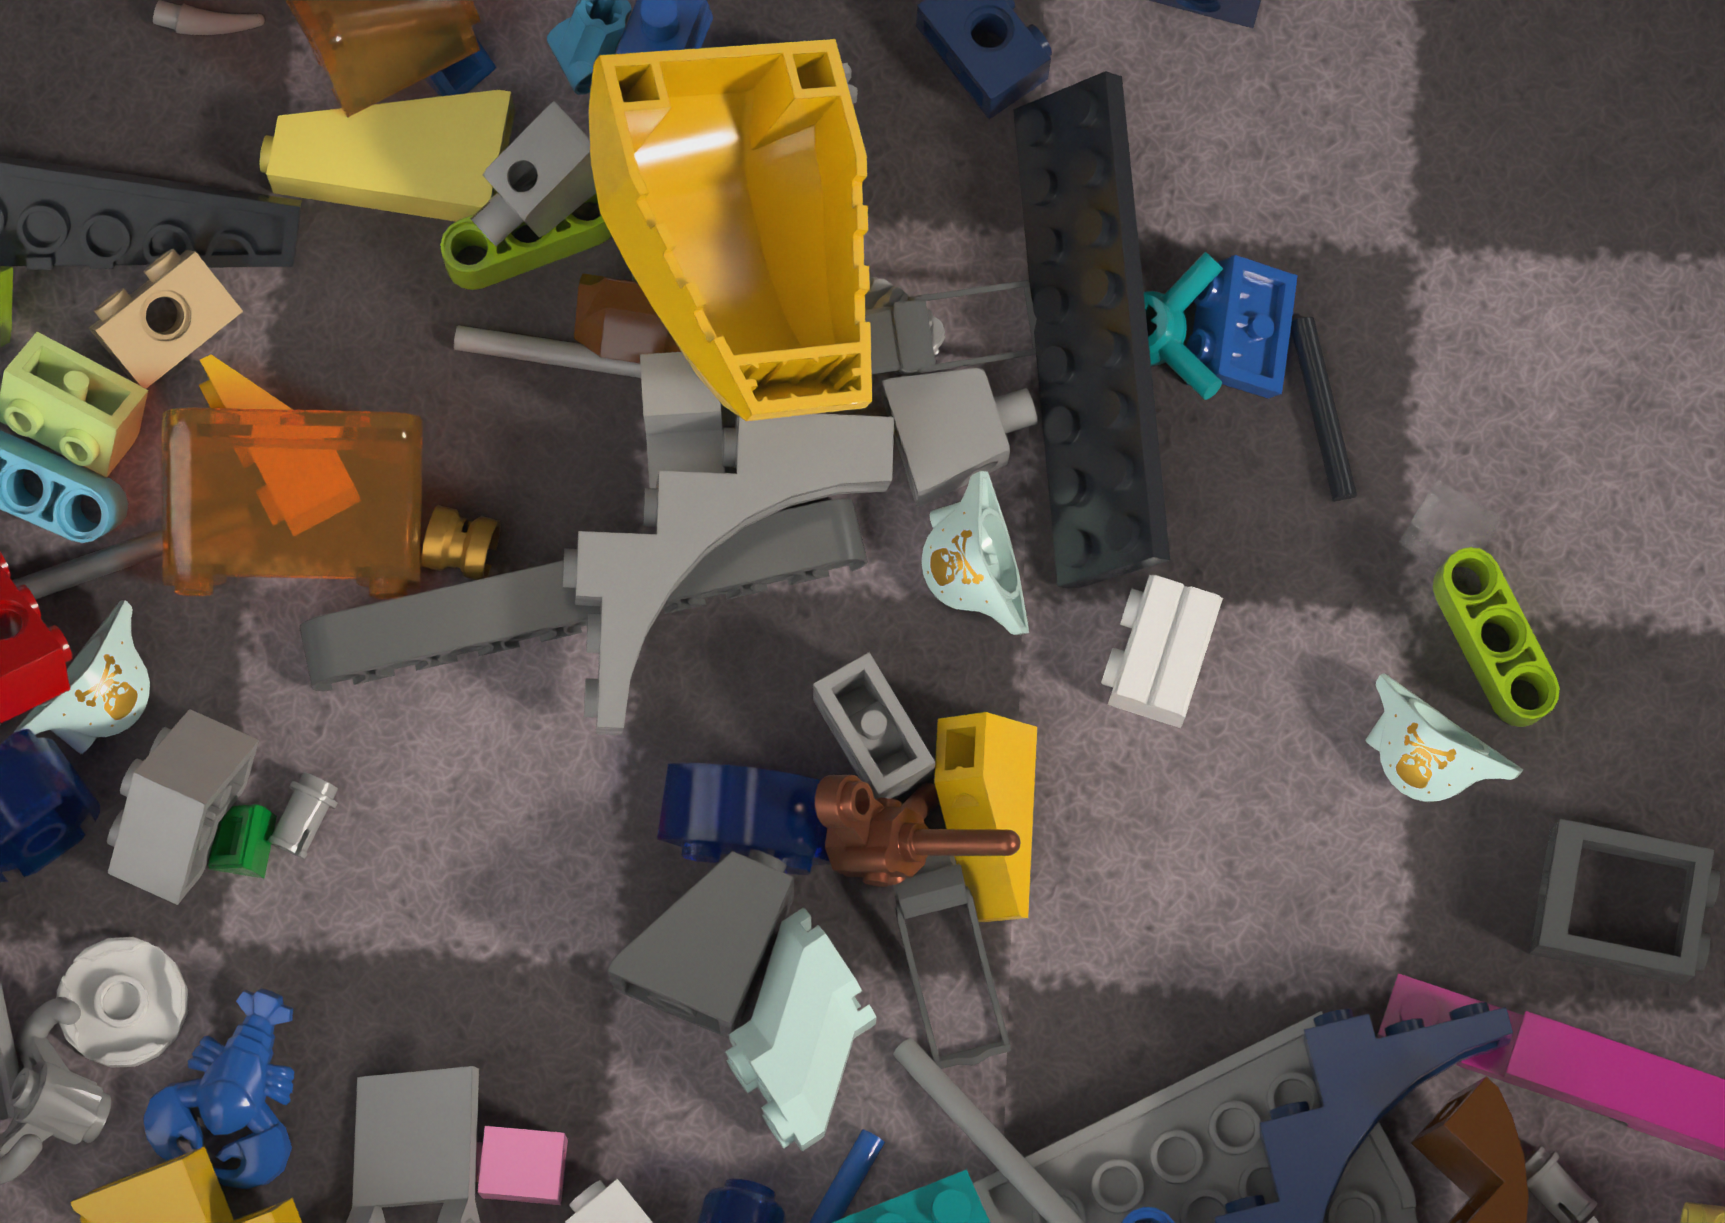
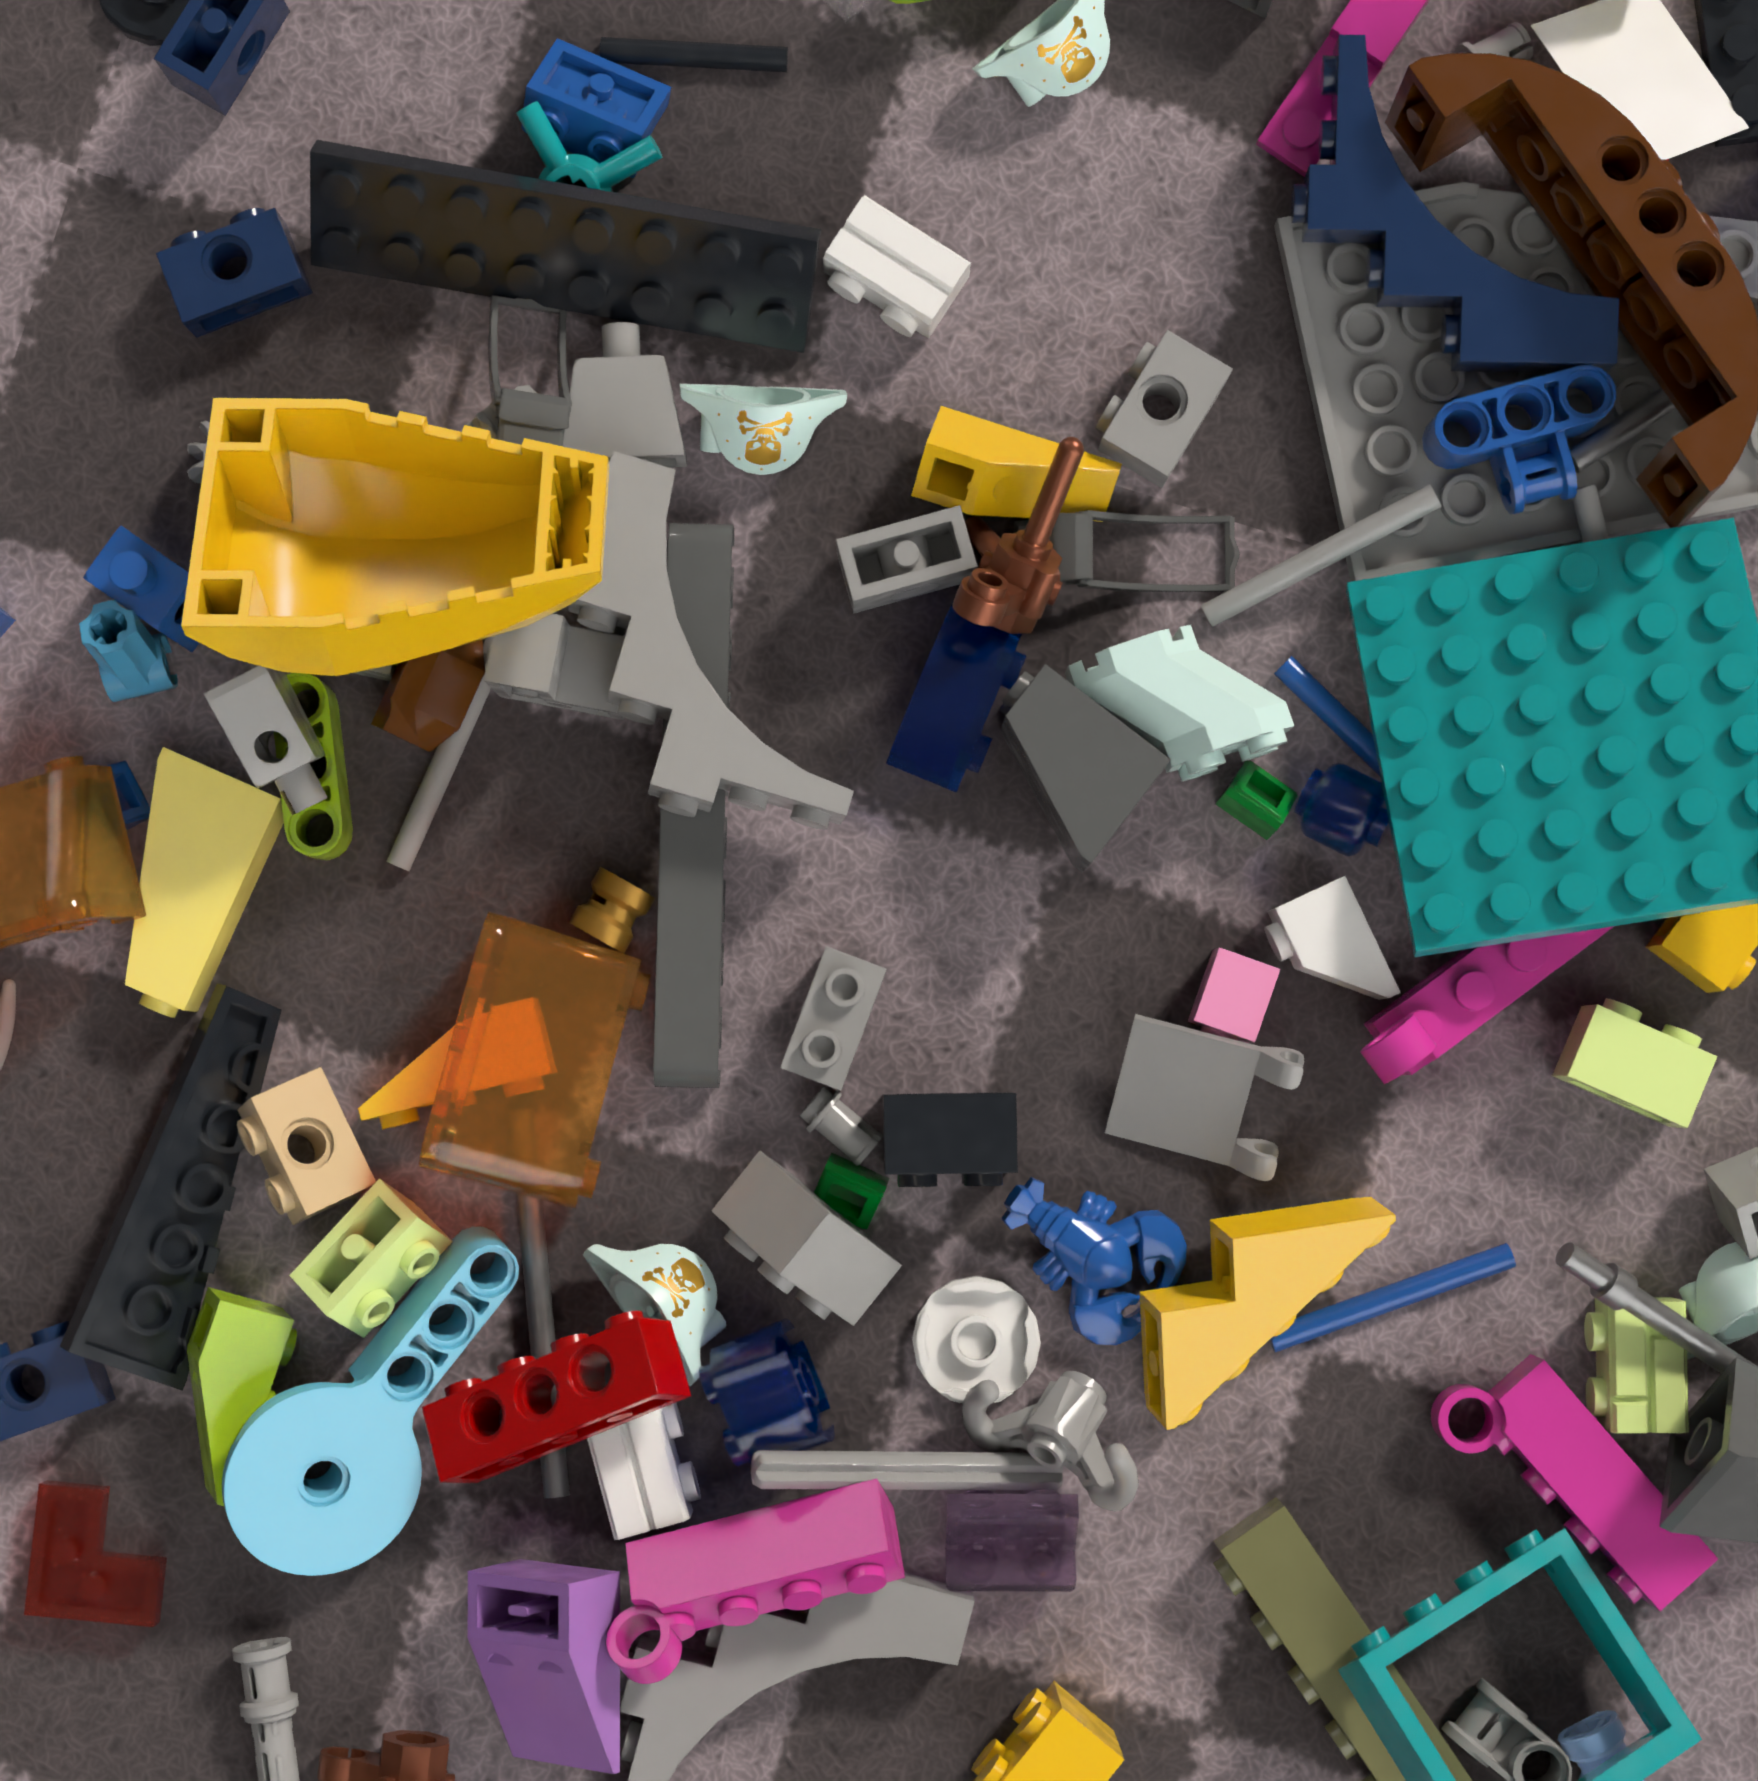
camera: 75 degrees left, 10 degrees up
(313, 912) = (950, 1136): none -> black brick
(404, 778) = (833, 1018): none -> light grey brick
(731, 1143) = (1257, 799): none -> green slope
(1058, 955) = (1183, 376): none -> light grey brick

